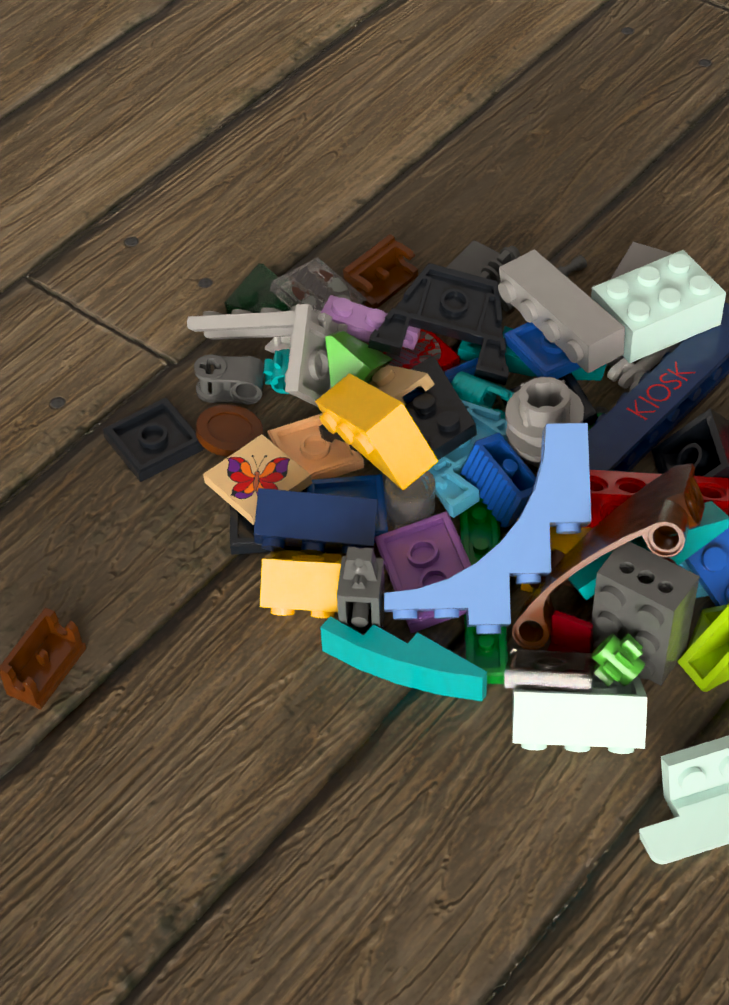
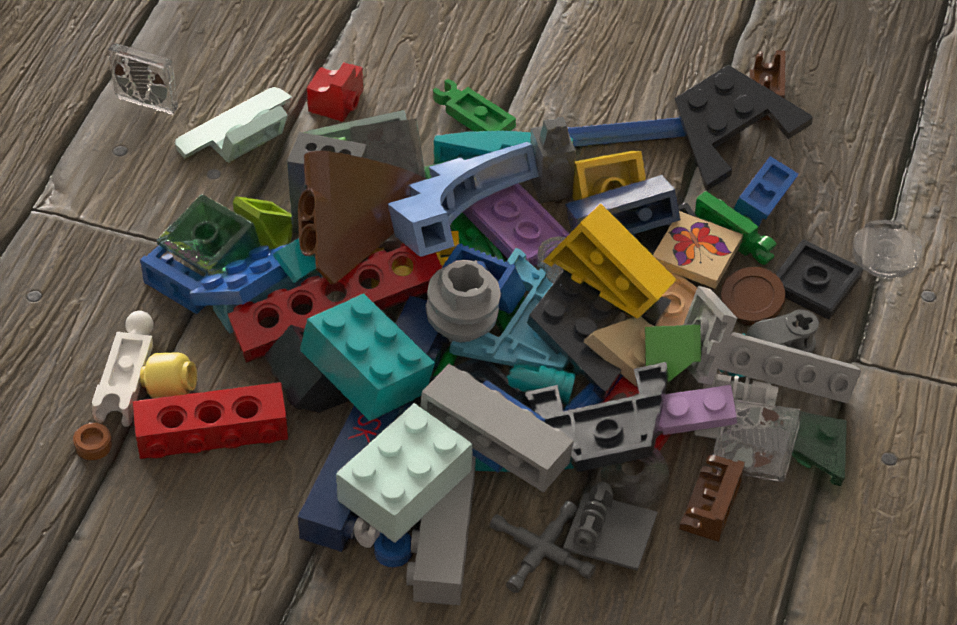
camera: 155 degrees right, 0 degrees up
(60, 450) = (887, 249): none -> clear tile
(122, 619) = (723, 108): none -> black wing
(147, 523) = (765, 191): none -> blue hinge
(199, 493) = (718, 213): none -> green plate
(219, 653) = (626, 132): none -> blue axle
(410, 732) = (473, 109): none -> green plate
(579, 807) = (335, 92): none -> red brick
(663, 400) = (366, 356): none -> teal brick

